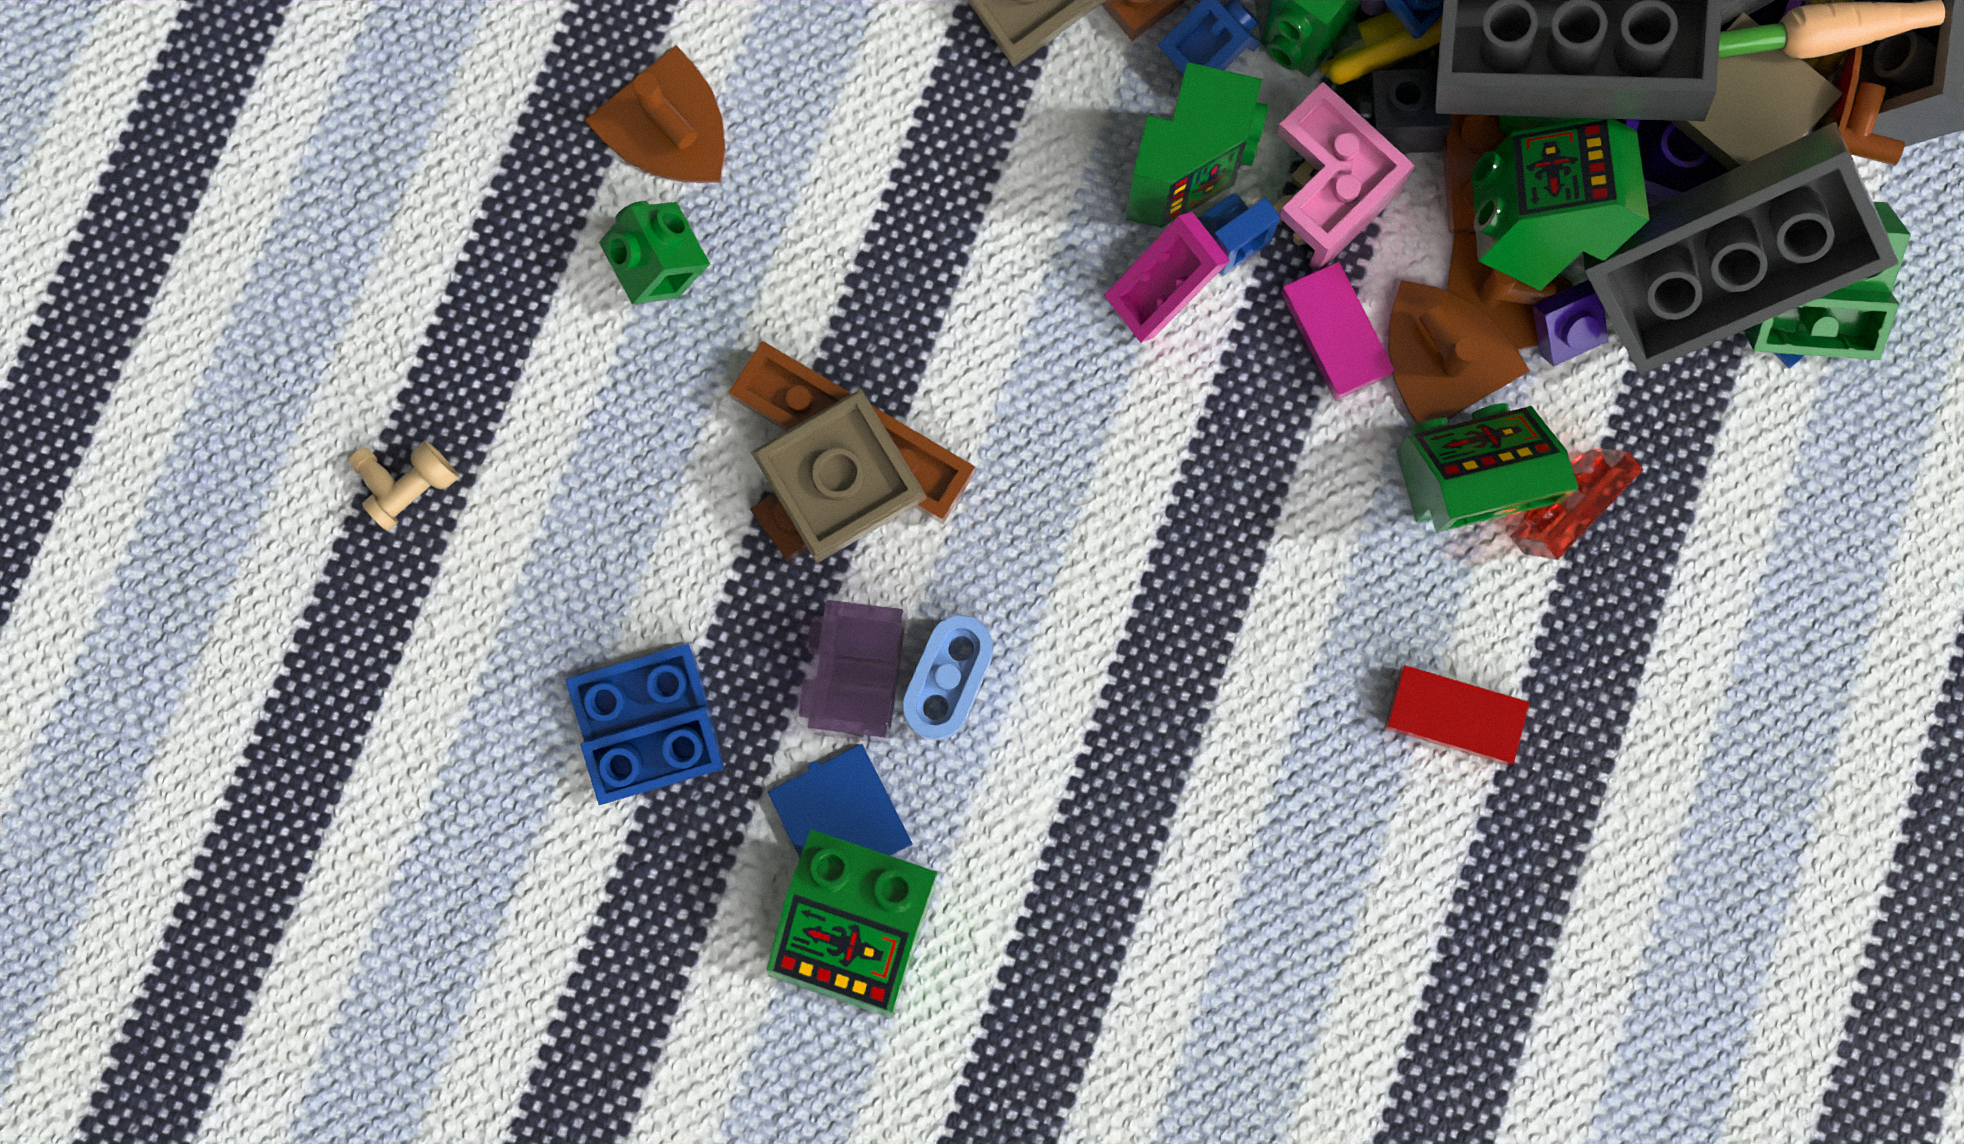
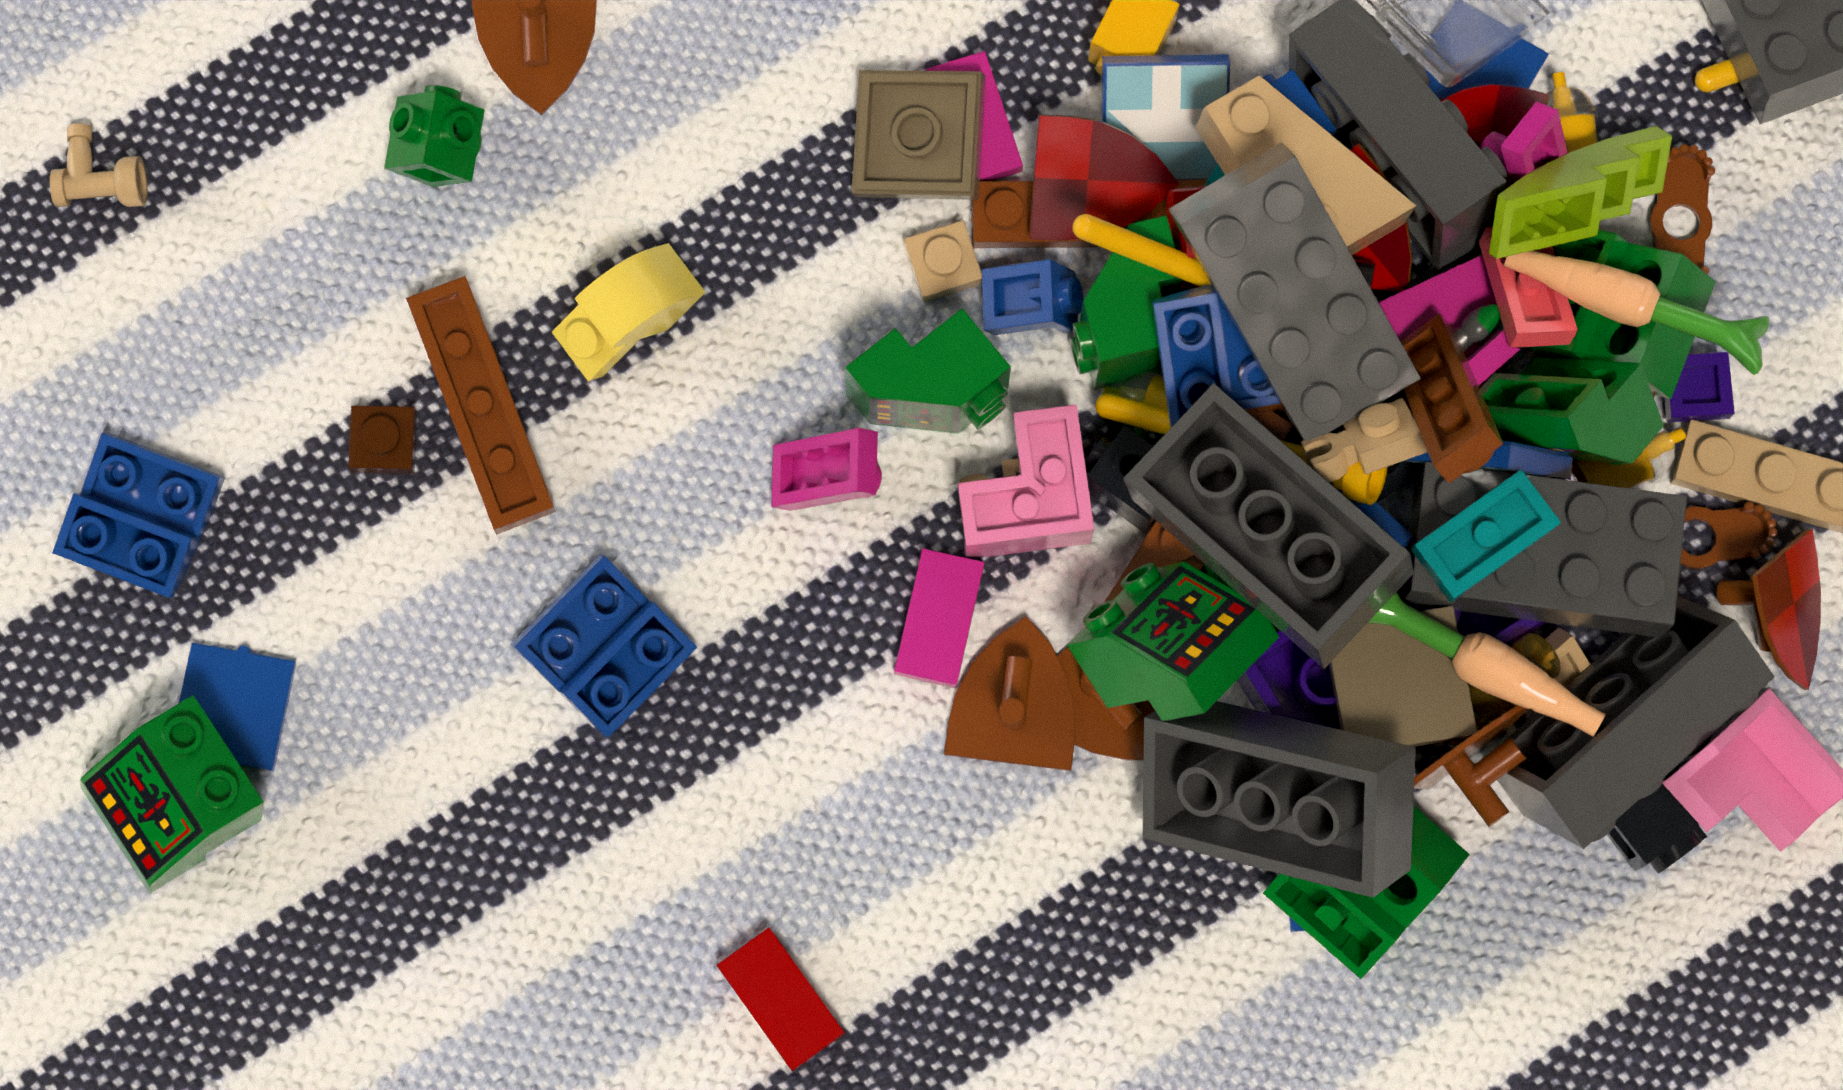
camera: 30 degrees right, 0 degrees up
(839, 475) = (437, 433): dark tan tile -> none
(855, 672) = (331, 600): clear purple brick -> none
(908, 273) = (626, 305): none -> light yellow brick
(946, 678) = (399, 656): light blue plate -> none
(1097, 546) = (604, 646): none -> blue slope
(1120, 64) = (943, 261): none -> tan plate
(1240, 229) = (915, 471): blue bracket -> none
(1484, 467) = (950, 814): green piece -> none
(1570, 323) = (1120, 755): dark purple plate -> none
(1600, 480) = (987, 905): clear red plate -> none

